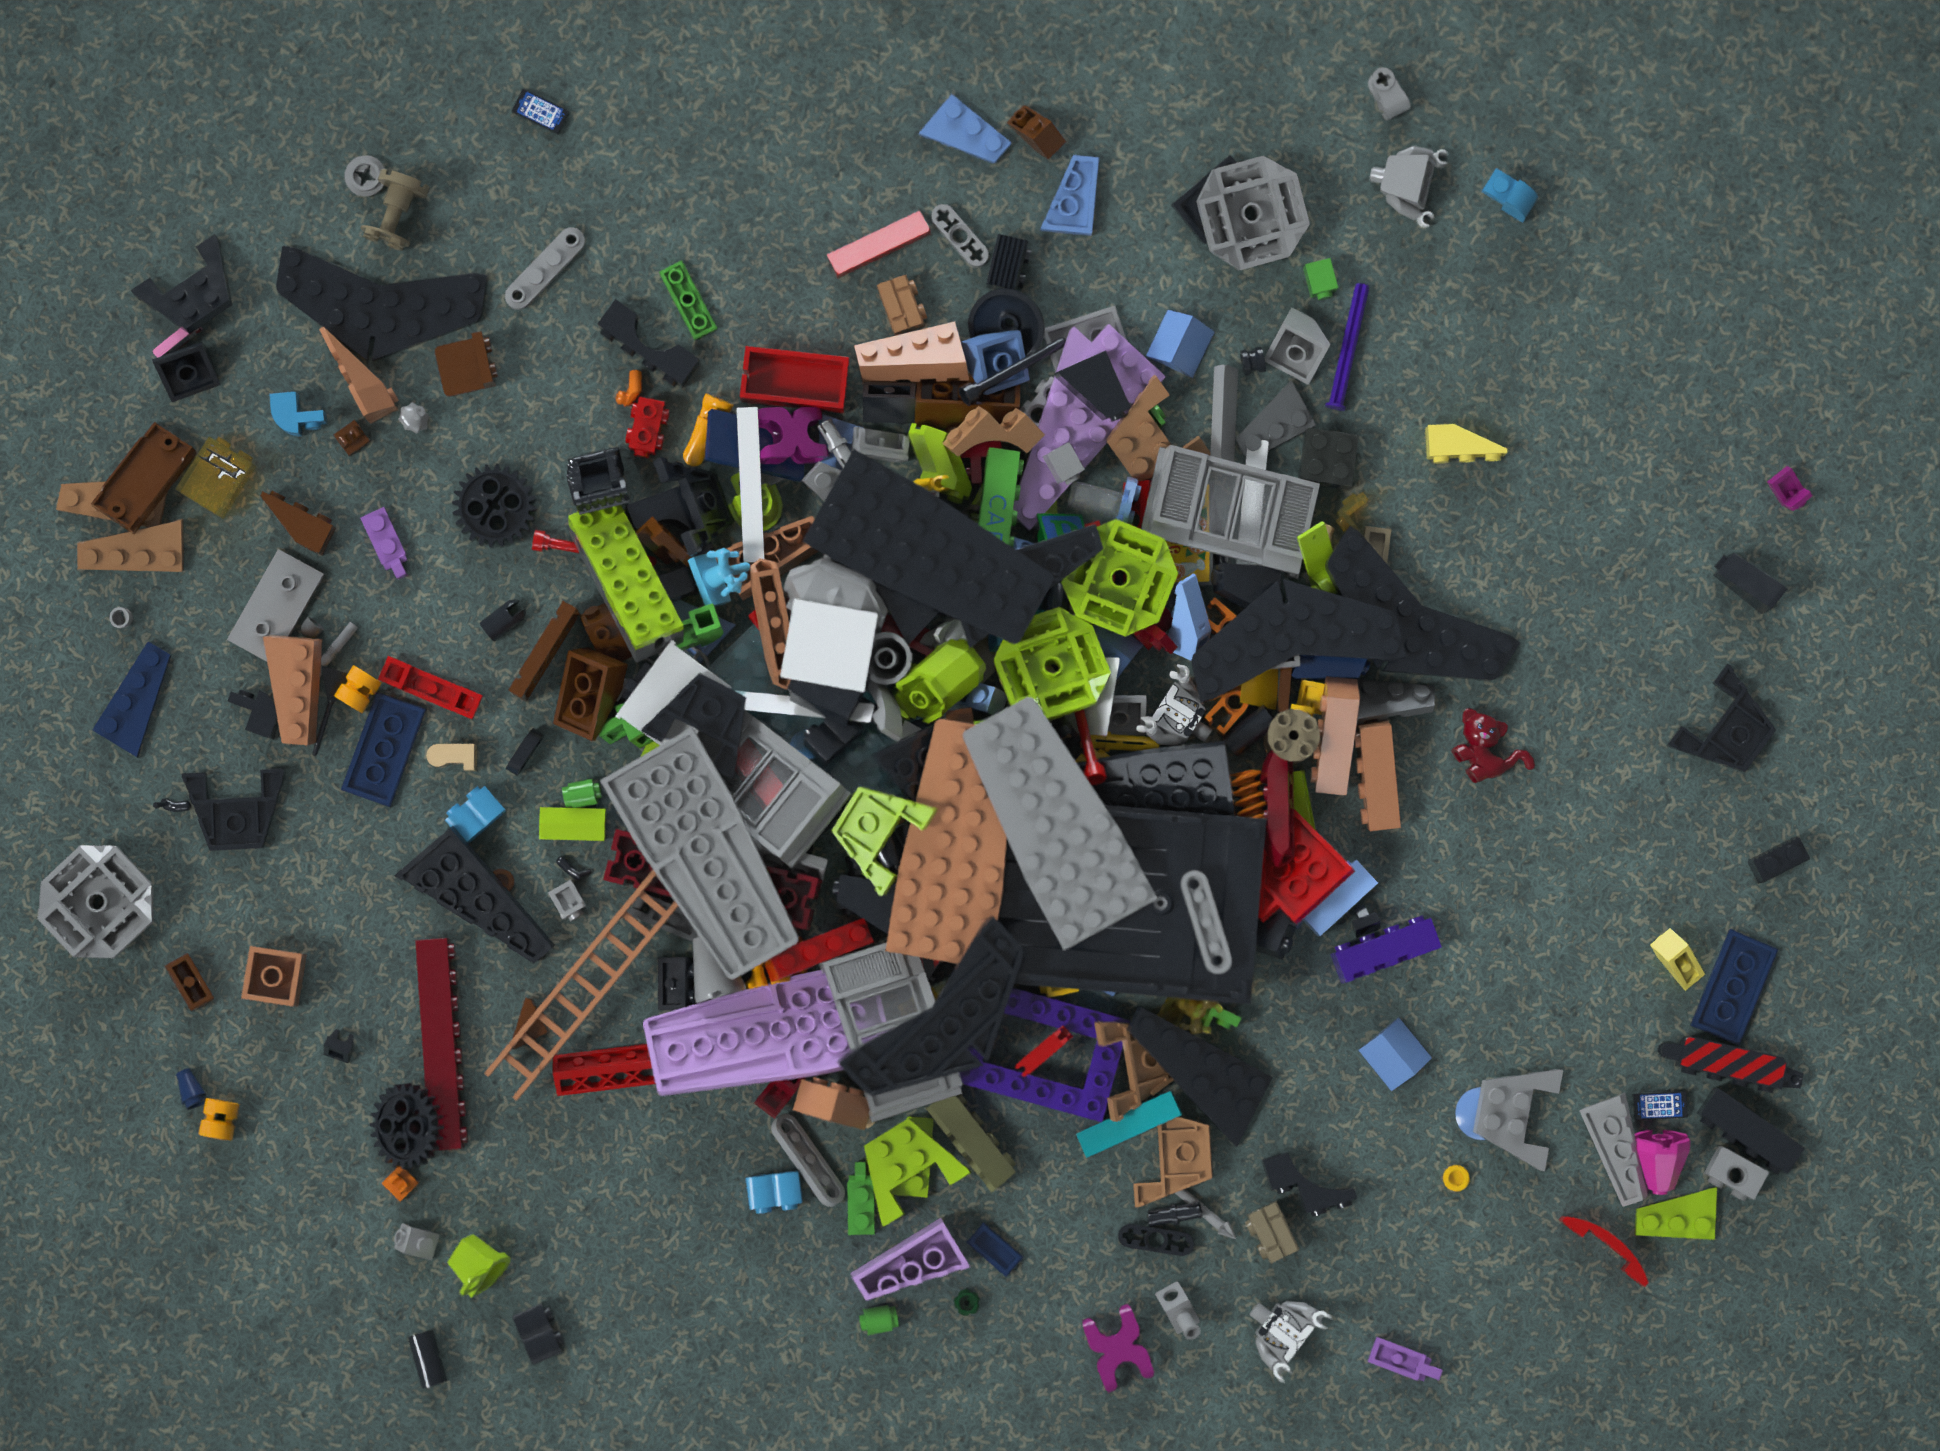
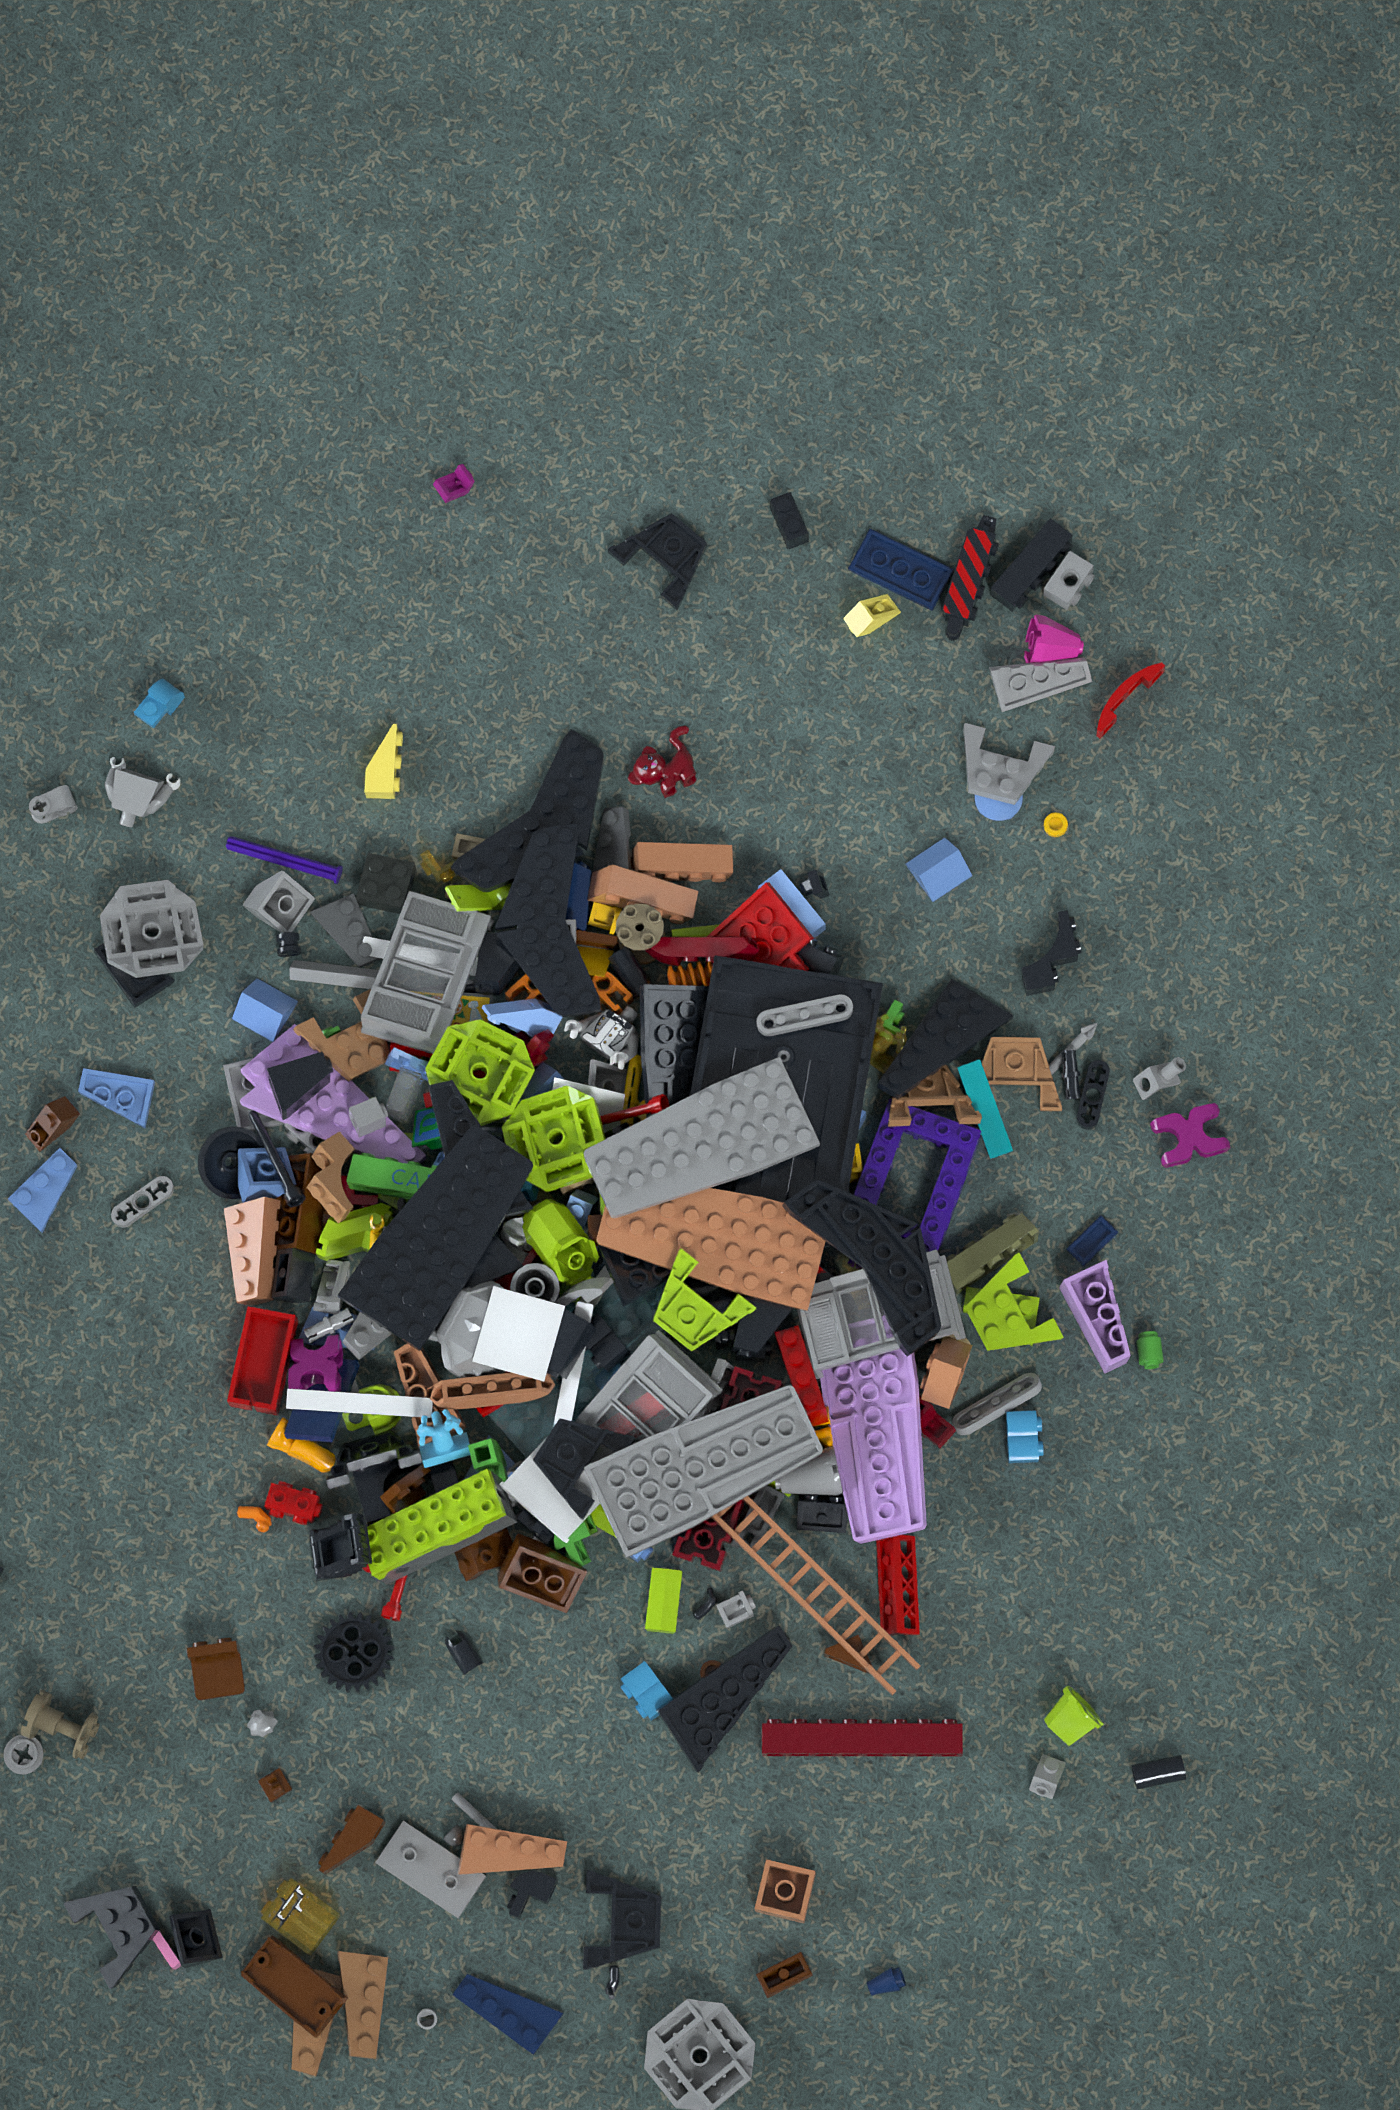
camera: 70 degrees left, 10 degrees down
(217, 1128) = (925, 1960): light orange wheel -> none
(287, 414) = (249, 1843): dark azure brick -> none
(332, 681) = (510, 1816): black piece -> none
(339, 1049) = (858, 1837): black tile -> none
(357, 689) = (517, 1793): light orange wheel -> none
(368, 391) = (227, 1766): nougat wedge -> none
(383, 749) = (577, 1775): dark blue tile -> none
(385, 541) = (378, 1759): medium lavender hinge -> none
(391, 313) = (152, 1768): black wing -> none
(400, 1183) = (990, 1787): orange tile -> none
(407, 1126) = (919, 1785): black gear -> none
(430, 687) = (523, 1724): red slope -> none
(444, 754) = (587, 1708): tan leg -> none
(524, 751) = (591, 1640): black beam -> none
(538, 1333) = (1141, 1665): black brick -> none
(544, 651) = (498, 1611): reddish brown piece -> none
(545, 268) = (131, 1590): light grey plate -> none
(581, 793) = (635, 1589): bright green brick -> none
(675, 363) = (194, 1520): black arch -> none
(694, 314) = (161, 1463): bright green tile -> none
(860, 1202) = (1038, 1359): bright green hinge -> none
(879, 244) = (141, 1276): slope -> none
(901, 305) = (202, 1259): medium nougat brick -> none
(964, 1309) = (1139, 1263): dark green plate -> none
(1008, 263) = (173, 1158): black brick -> none
(1044, 1050) = (911, 1175): red piece -> none
(1272, 1232) = (1093, 990): dark tan brick -> none
(1284, 1332) = (1185, 985): torso -> none
(1320, 279) = (218, 877): bright green brick -> none
(1386, 949) = (842, 868): dark purple wedge -> none
(1402, 1360) = (1218, 884): medium lavender hinge -> none
(1660, 1105) = (1003, 641): tile -> none
(1680, 1217) = (1105, 632): lime wing -> none
(1749, 582) = (536, 524): black slope -> none

